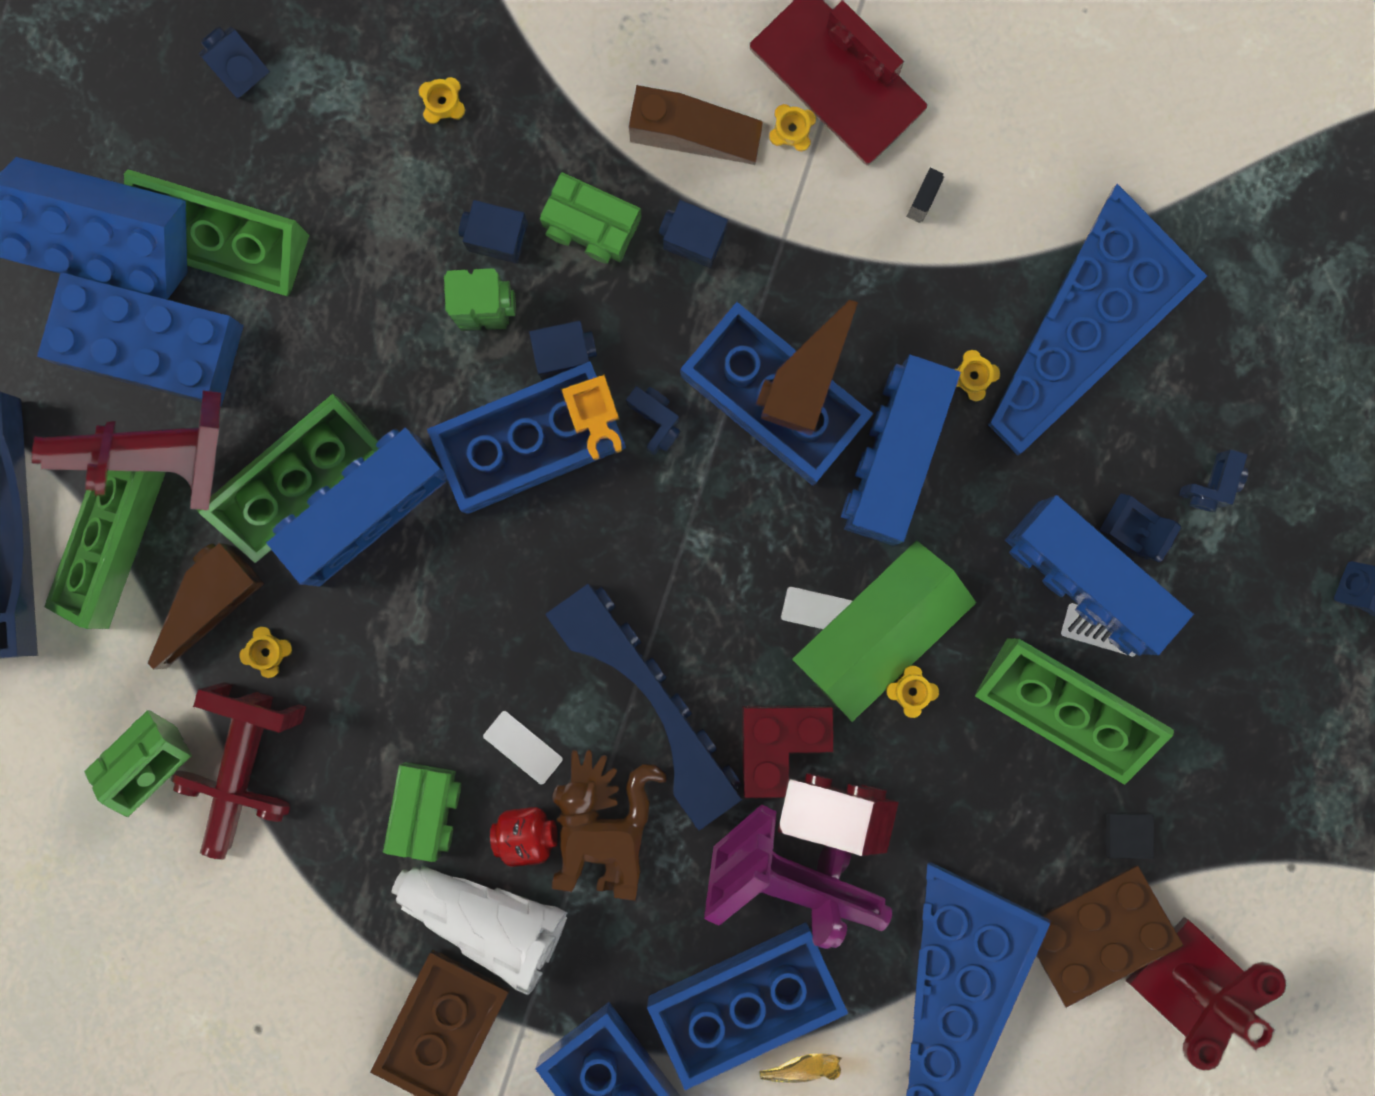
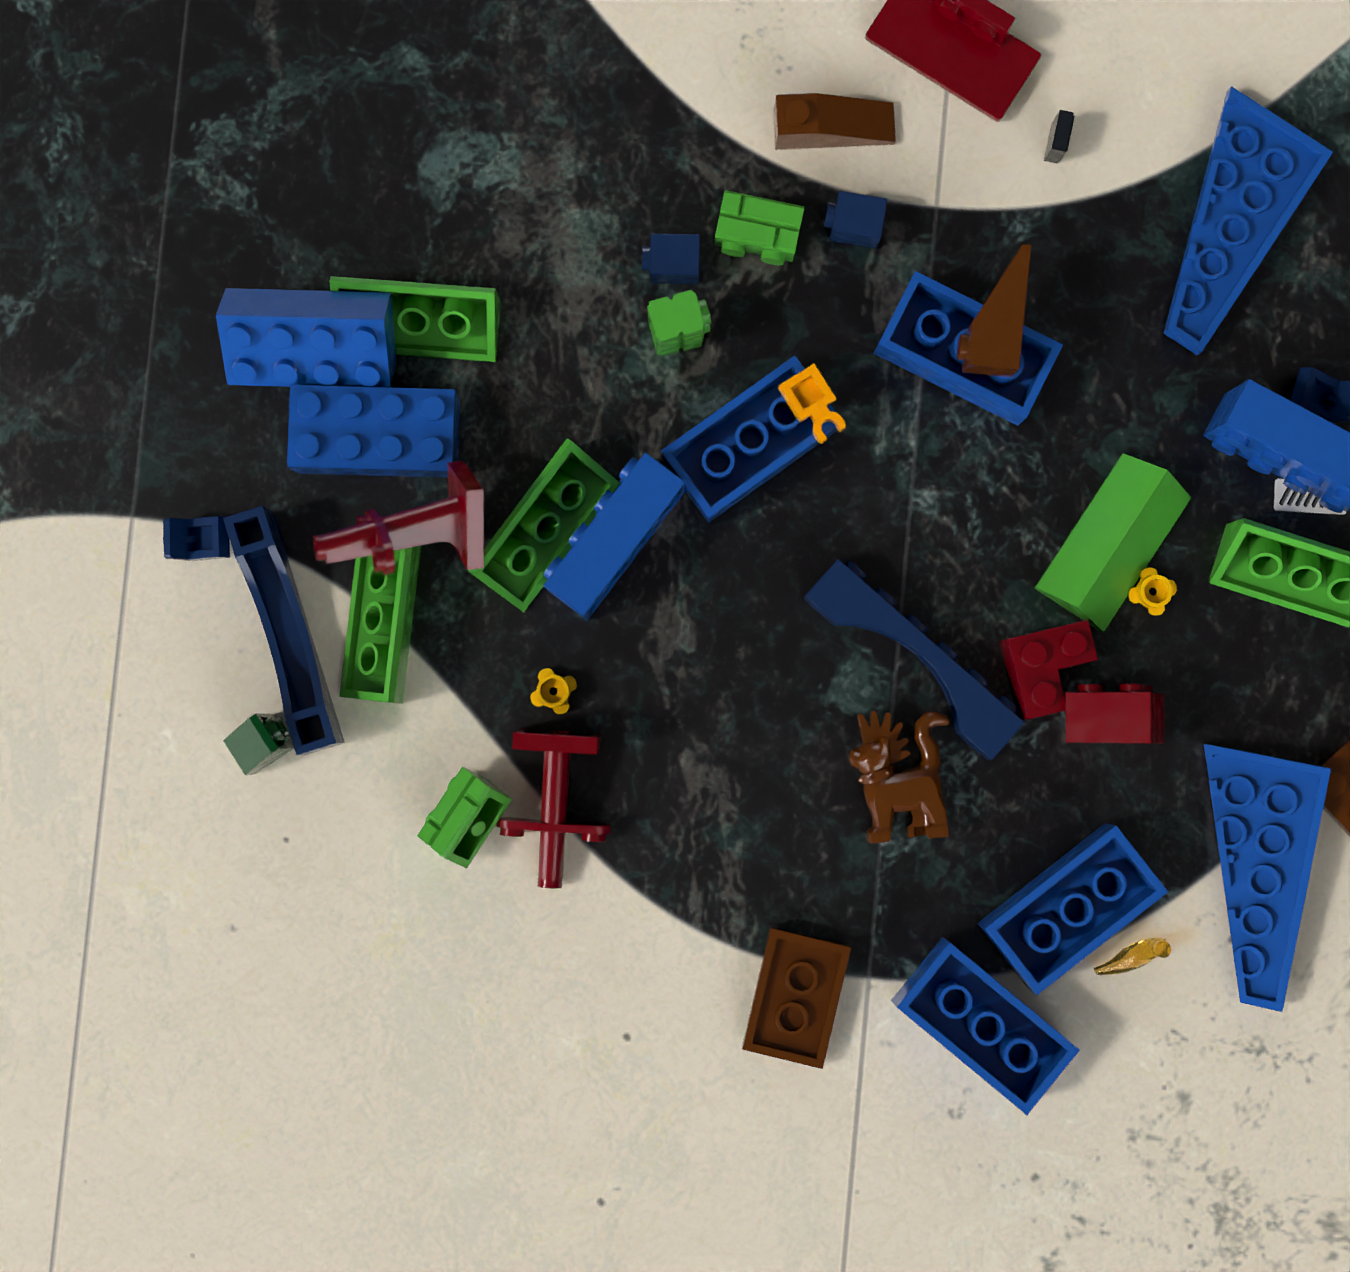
camera: 15 degrees left, 0 degrees up
(206, 596) = (490, 650): reddish brown slope -> none
(232, 60) = (394, 156): dark blue bracket -> none
(421, 812) = (732, 803): bright green brick -> none
(438, 88) = (595, 138): yellow plate -> none
(487, 924) = (820, 889): white cone -> none
(523, 747) = (808, 724): white sticker -> none
(523, 837) = (831, 804): red head -> none
(561, 348) = (760, 352): dark blue brick -> none
(654, 408) = (856, 387): dark blue bracket -> none
(746, 865) = (1045, 780): magenta piece -> none
(792, 115) = (922, 91): yellow plate -> none
(811, 607) = (1041, 536): white sticker -> none
(902, 450) = (1094, 373): blue brick -> none
(986, 375) = (1152, 288): yellow plate -> none

